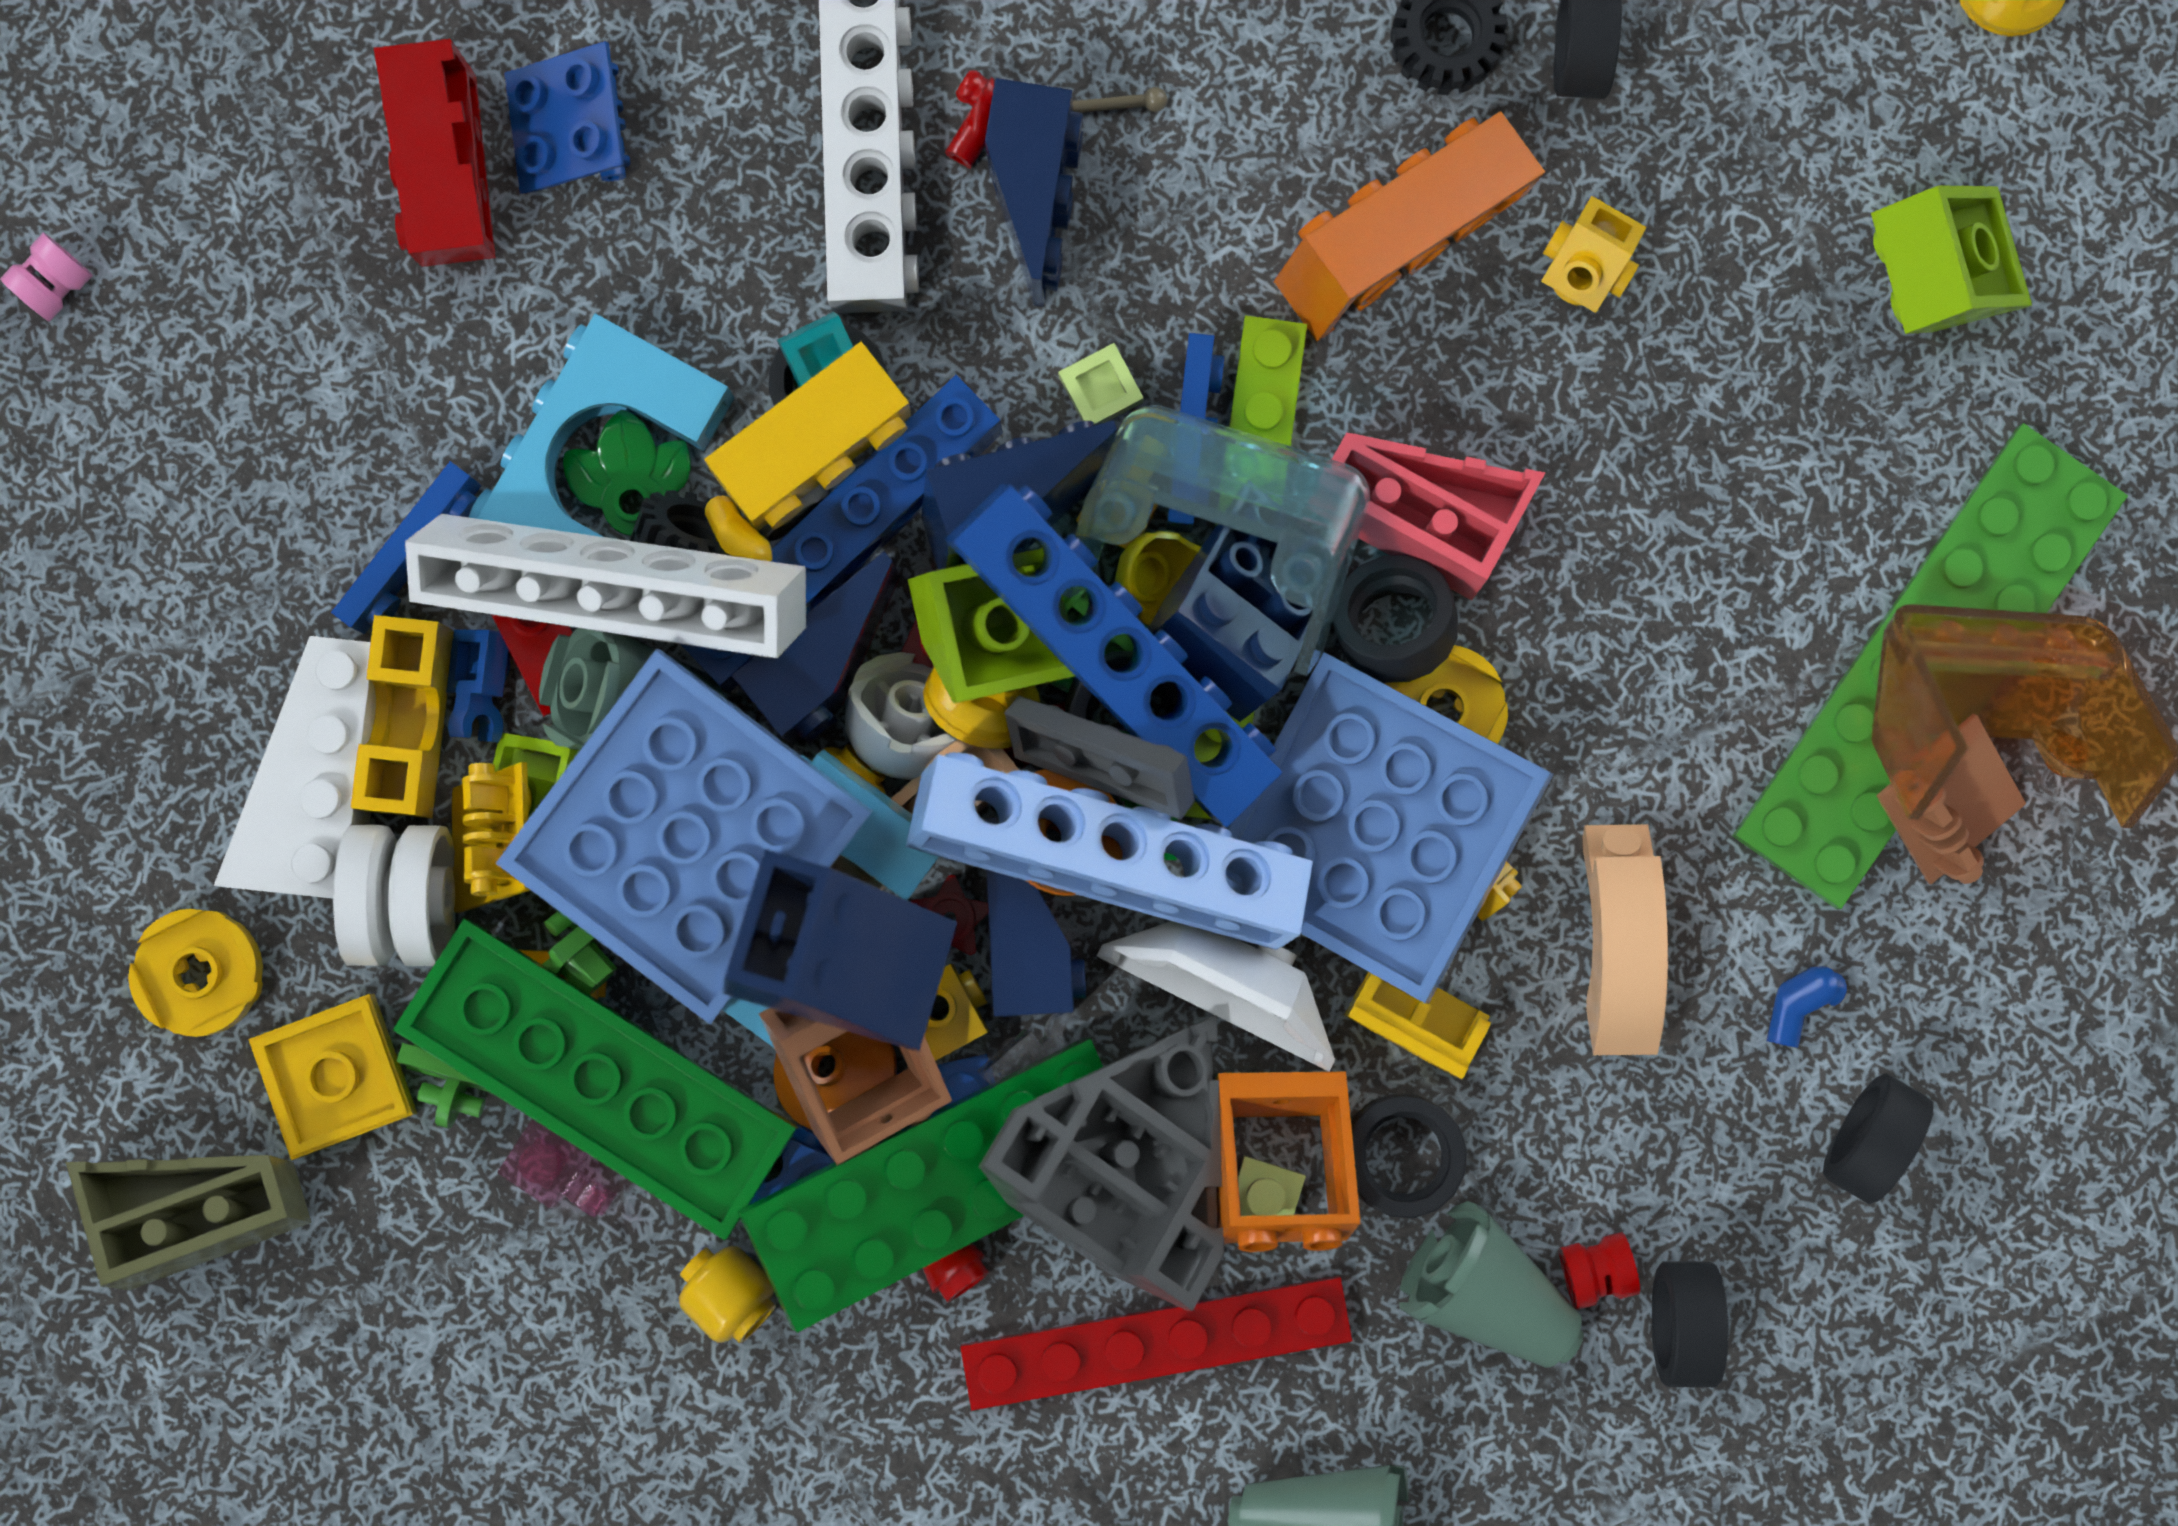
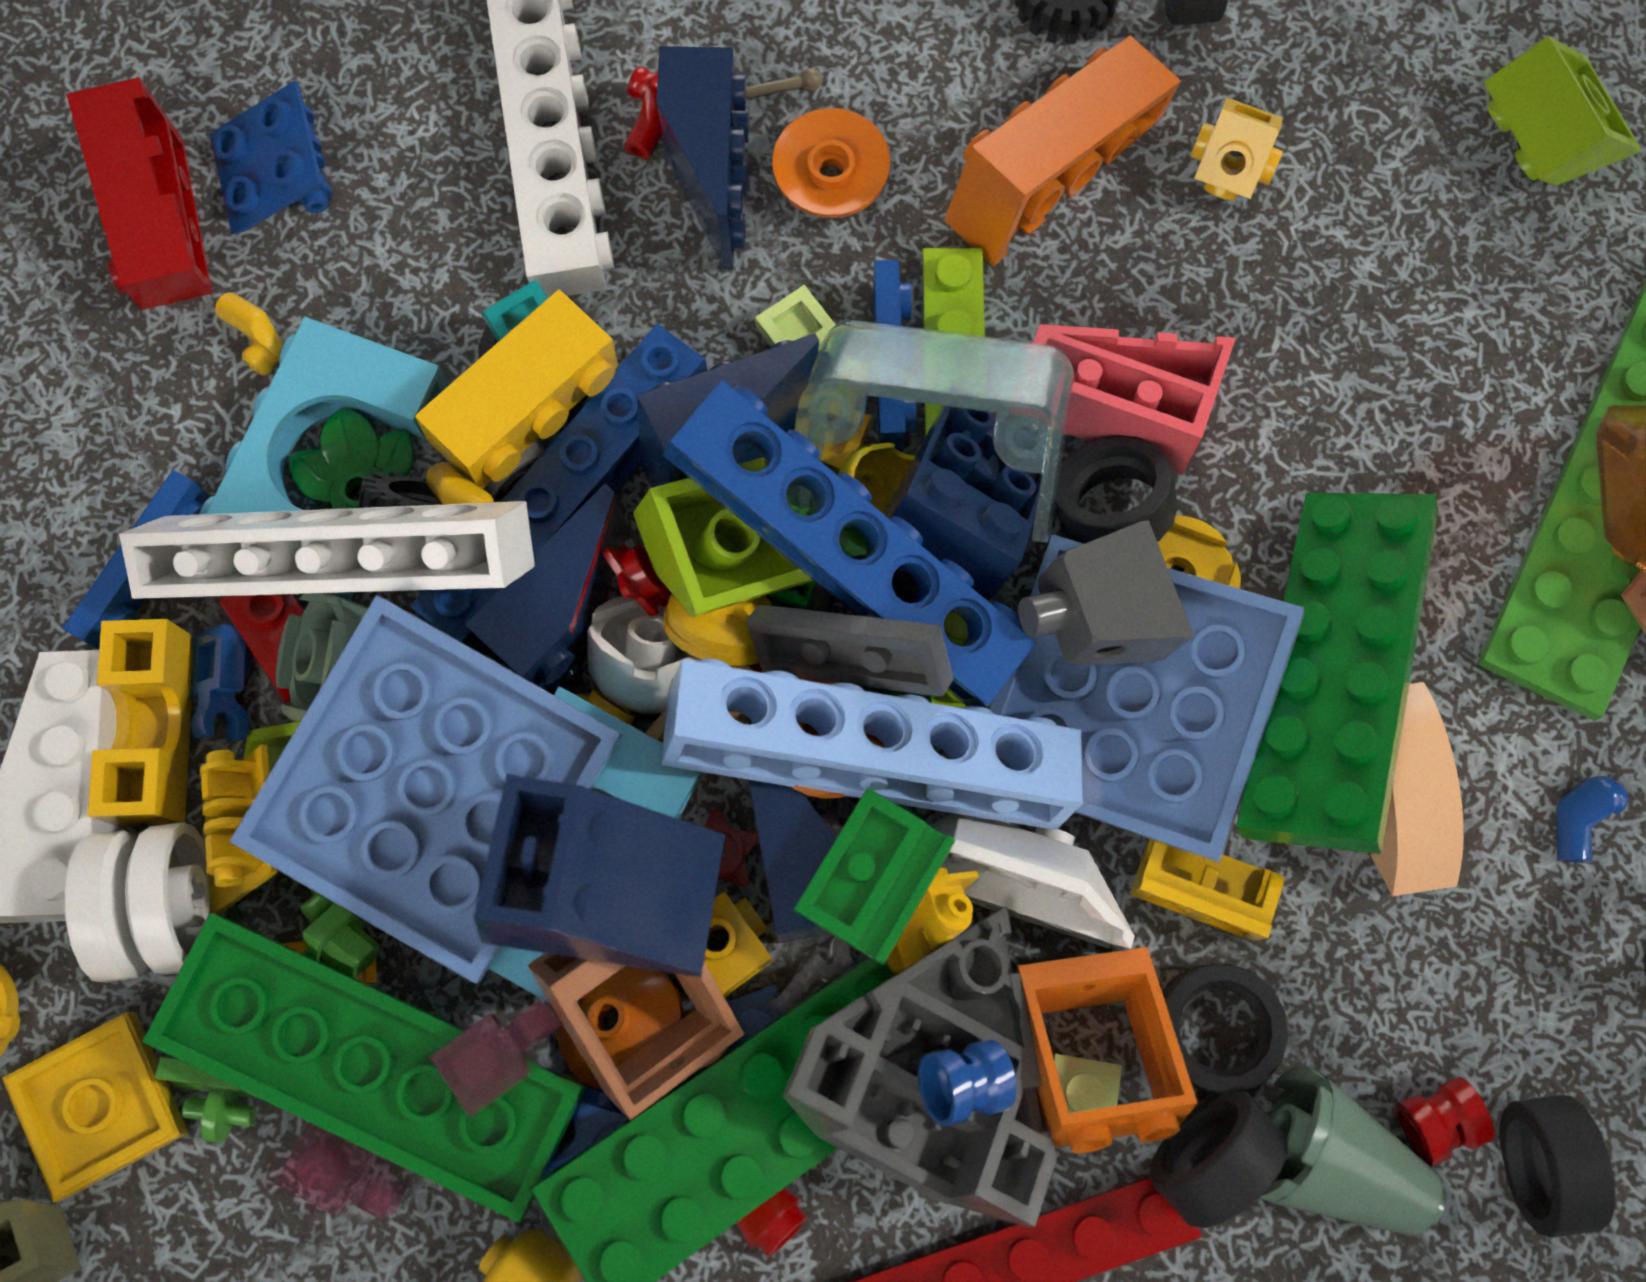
camera: 10 degrees left, 10 degrees down
(540, 305) = (256, 325): none -> yellow arm
(713, 1091) = (489, 1058): none -> clear pink plate
(901, 640) = (635, 575): none -> red plate
(1092, 977) = (874, 876): none -> green plate
(1136, 1016) = (937, 919): none -> yellow hinge
(1150, 1175) = (967, 1082): none -> blue wheel
(1168, 176) = (828, 139): none -> orange dish
(1360, 740) = (1109, 601): none -> dark grey torso
(1374, 1274) = (1219, 1160): none -> black tyre
(1581, 848) = (1344, 693): none -> green plate

